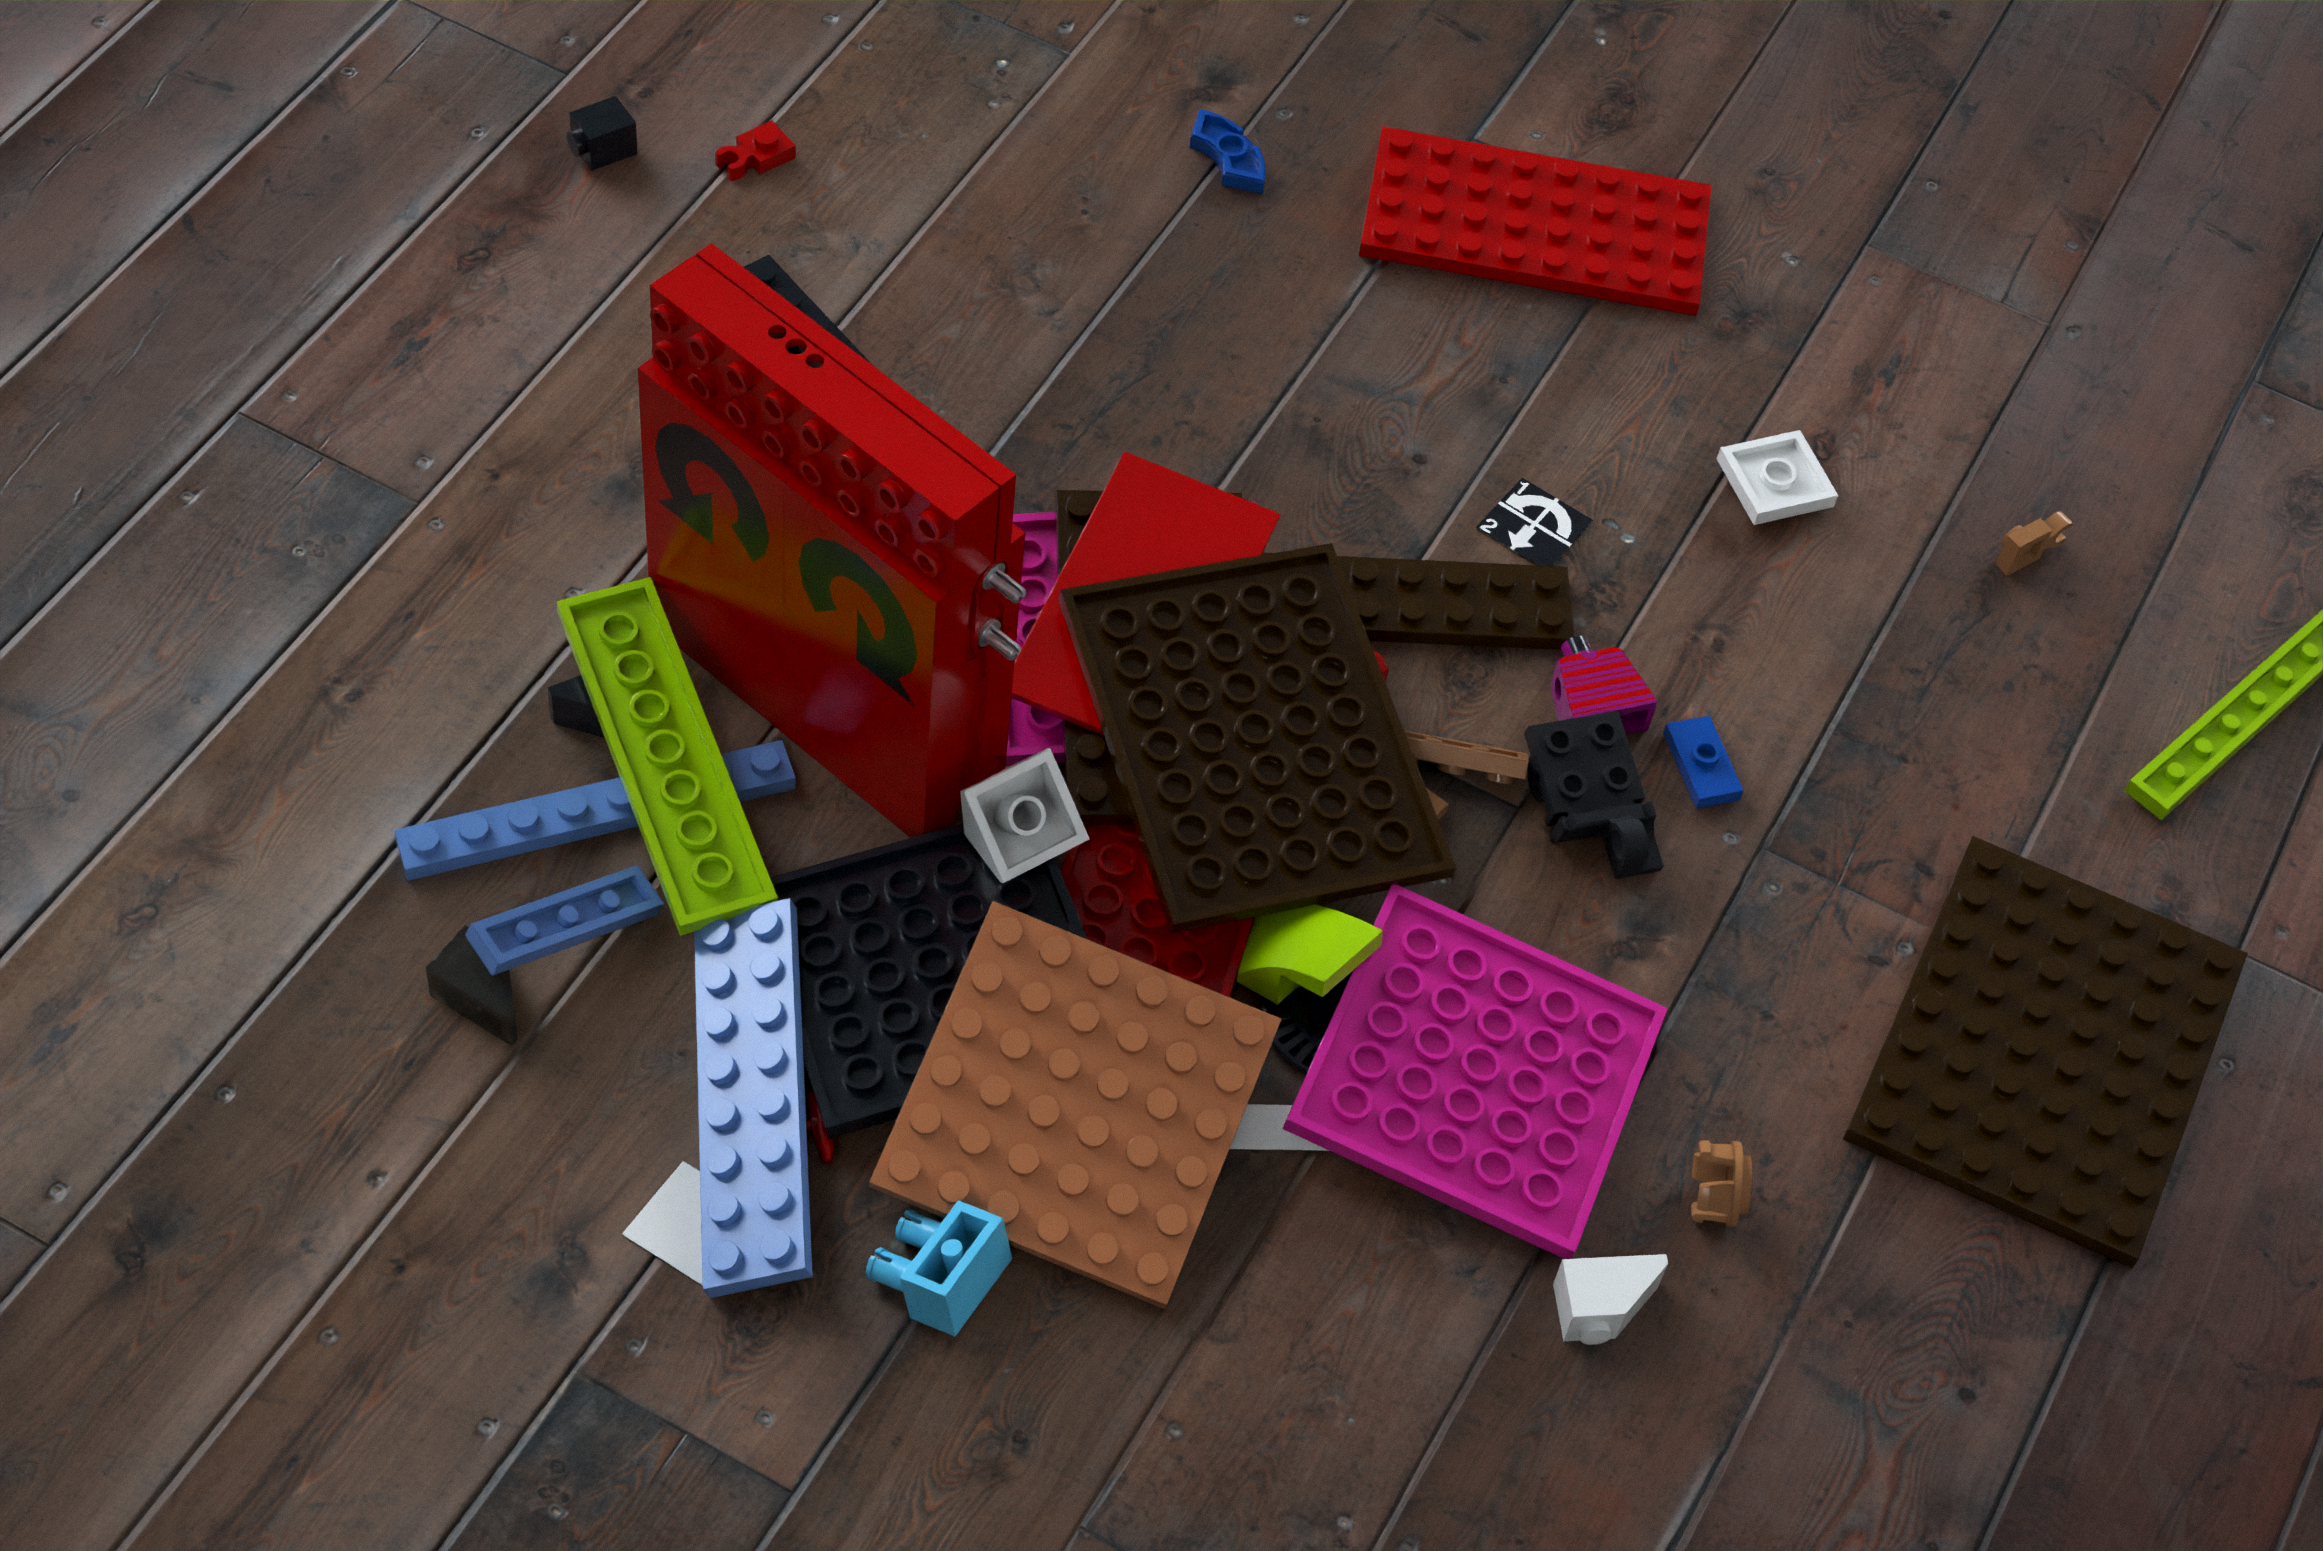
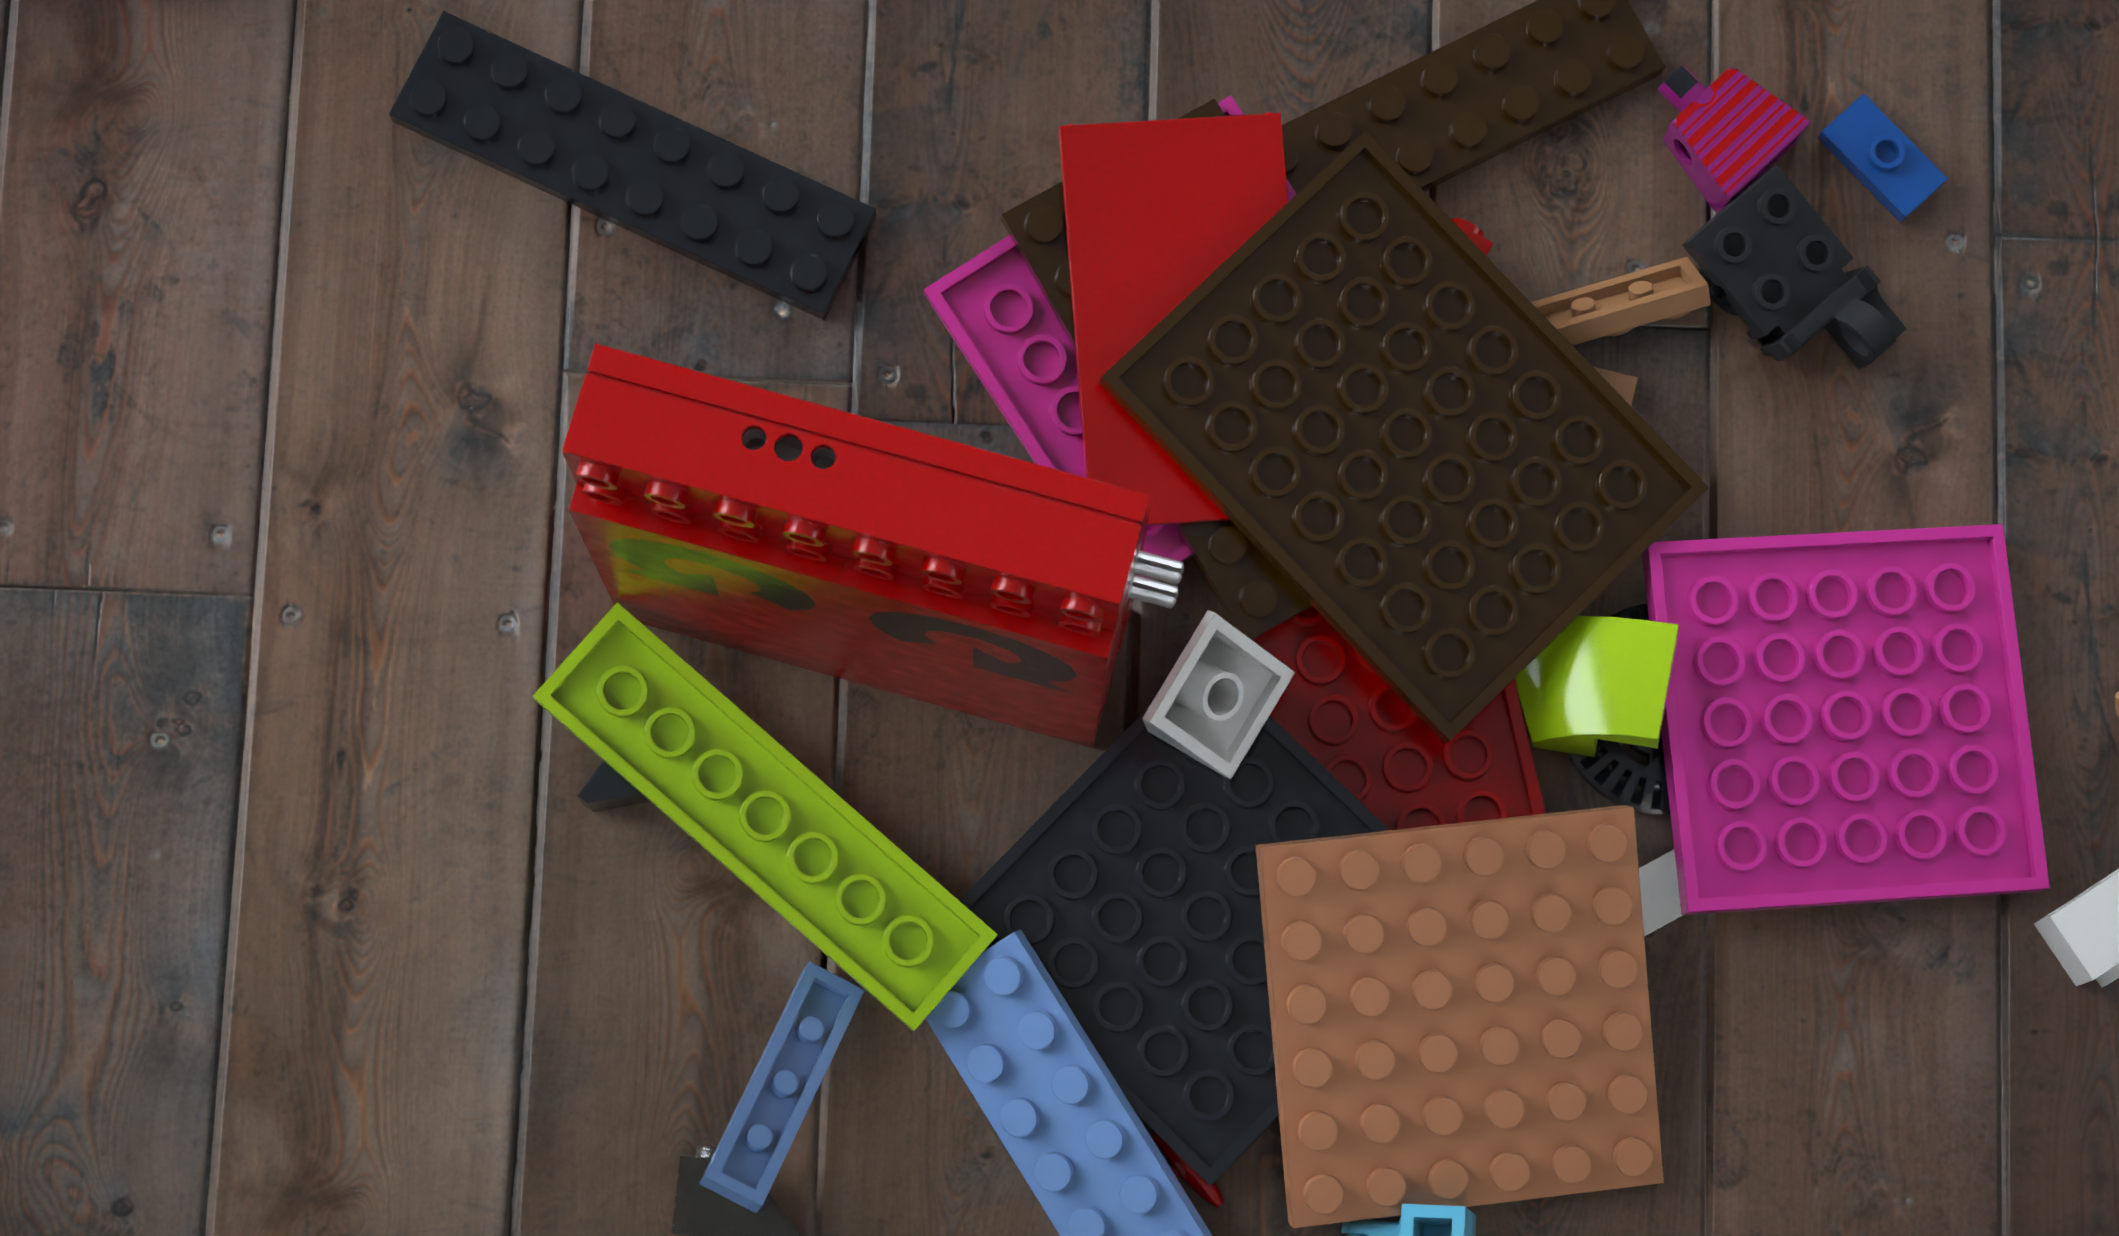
camera: 25 degrees left, 25 degrees up
(564, 817) = (688, 930): medium blue plate -> none

